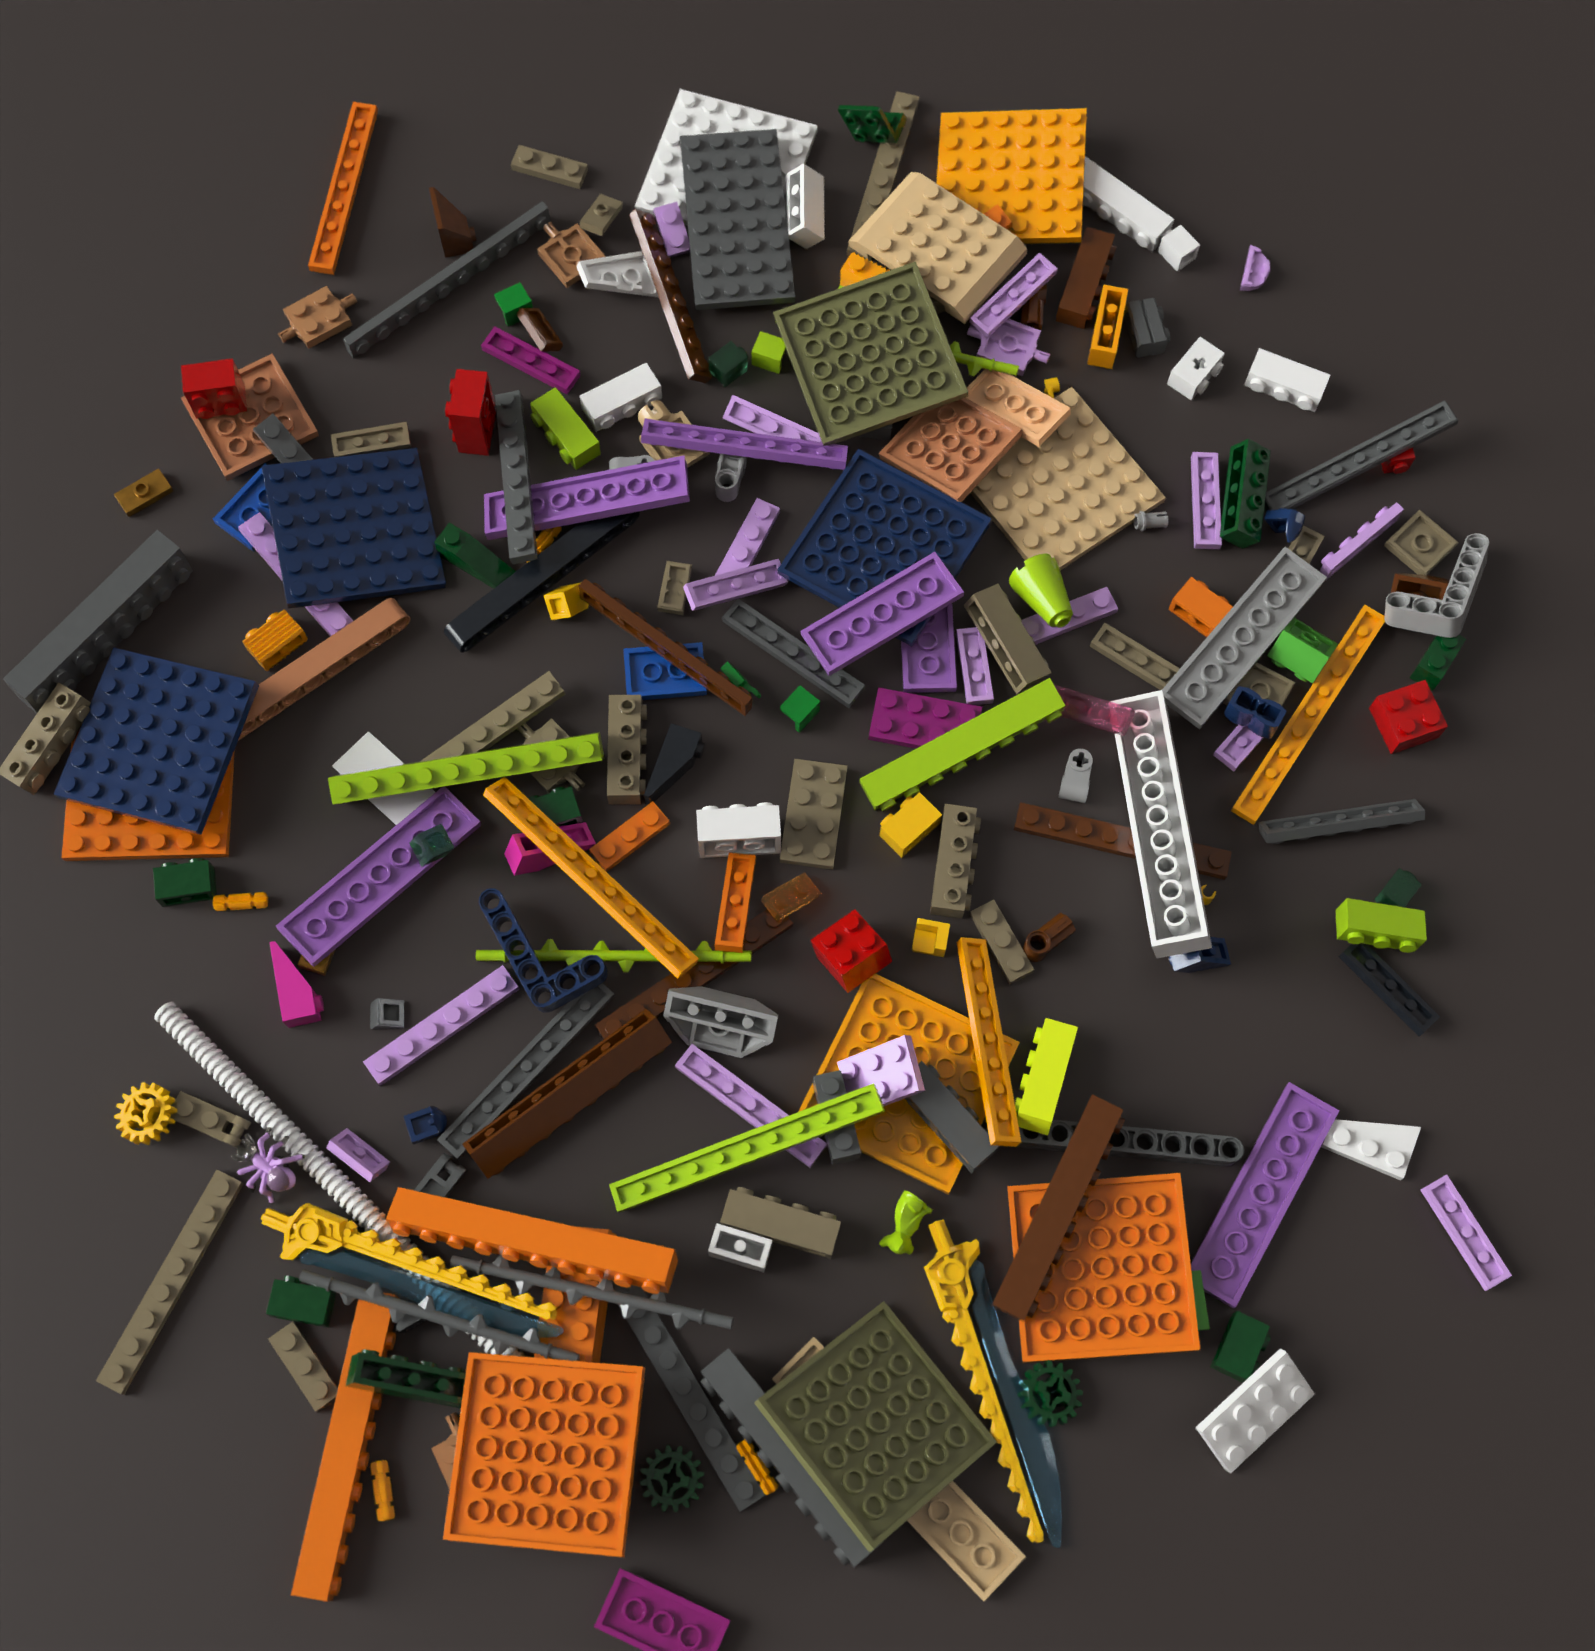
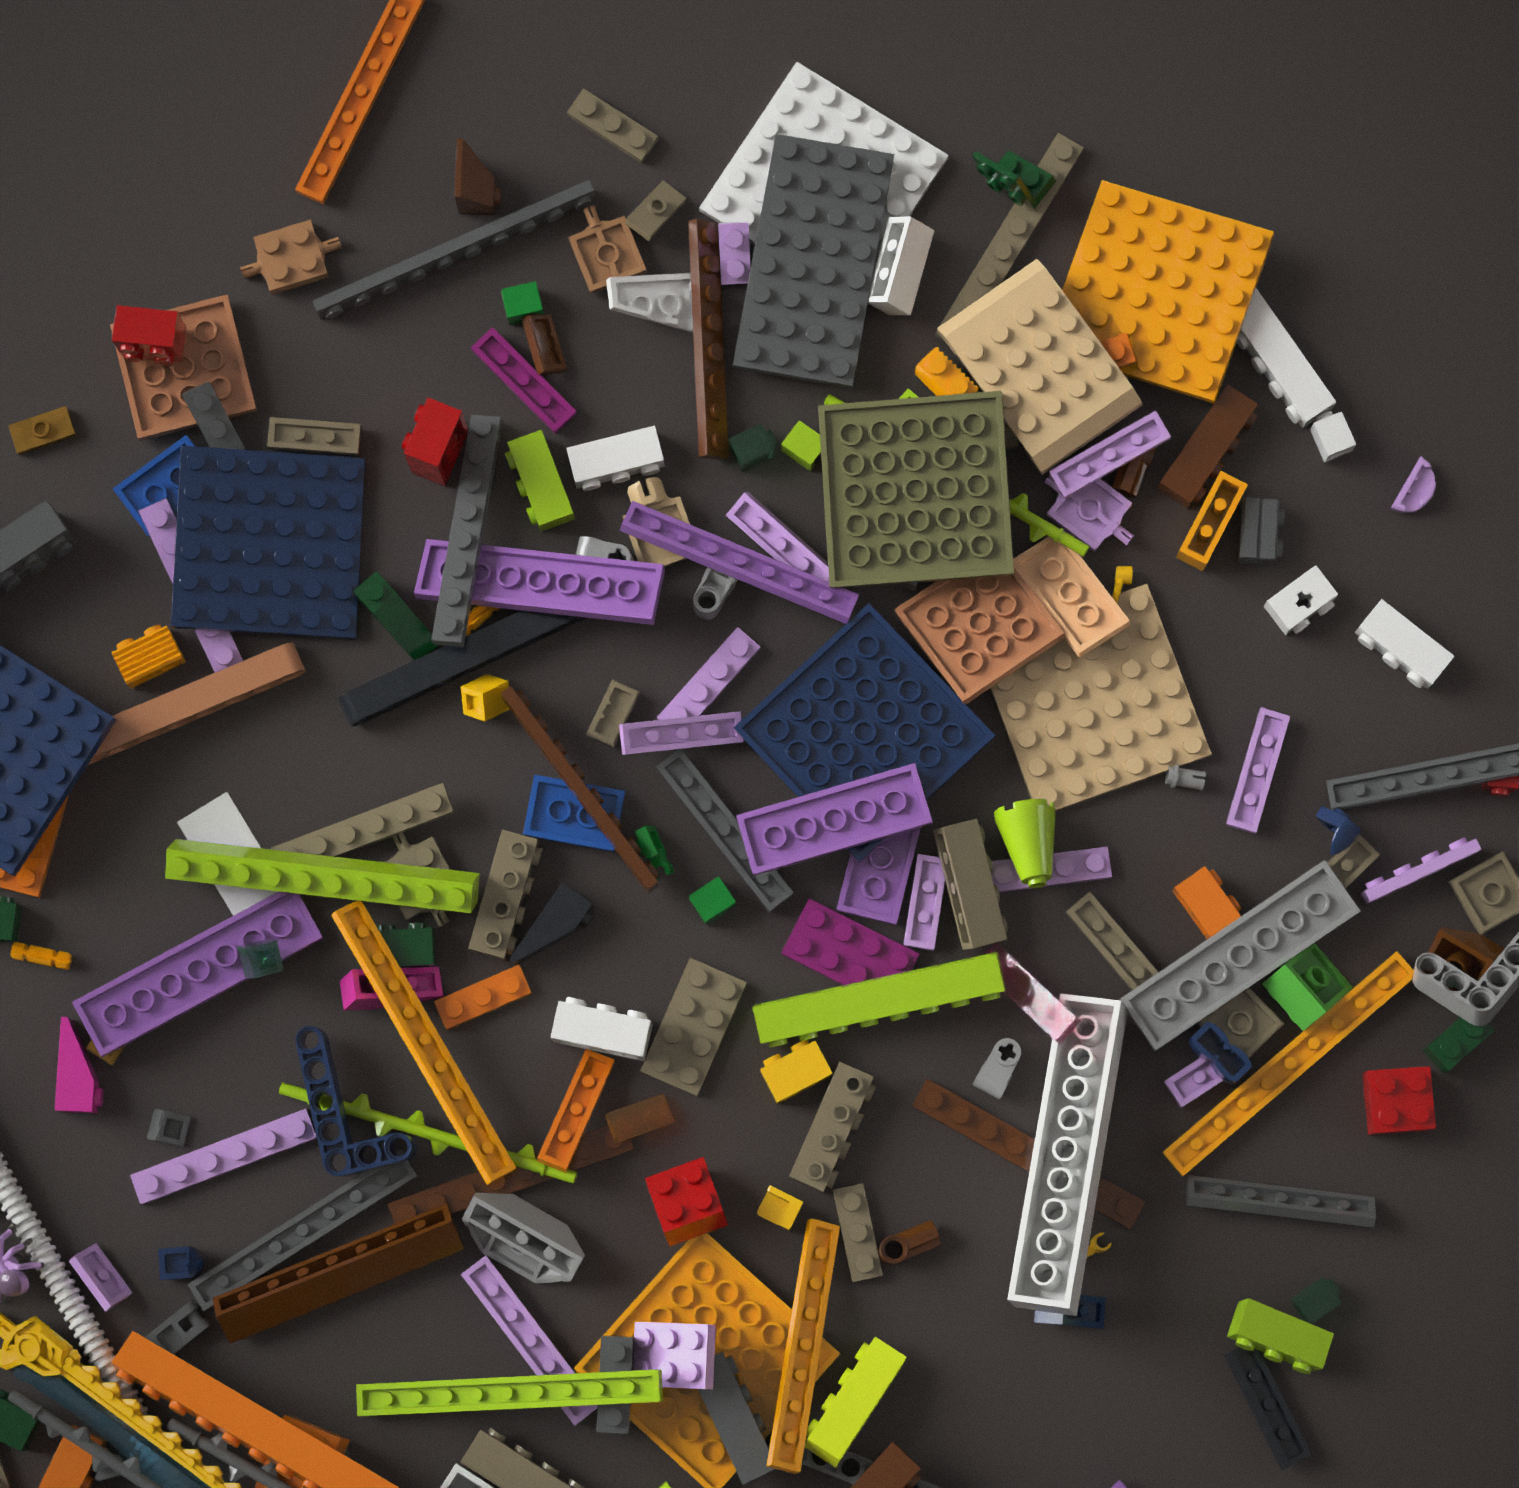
camera: 20 degrees right, 10 degrees up
(1245, 493) = (1304, 777): dark green brick -> none

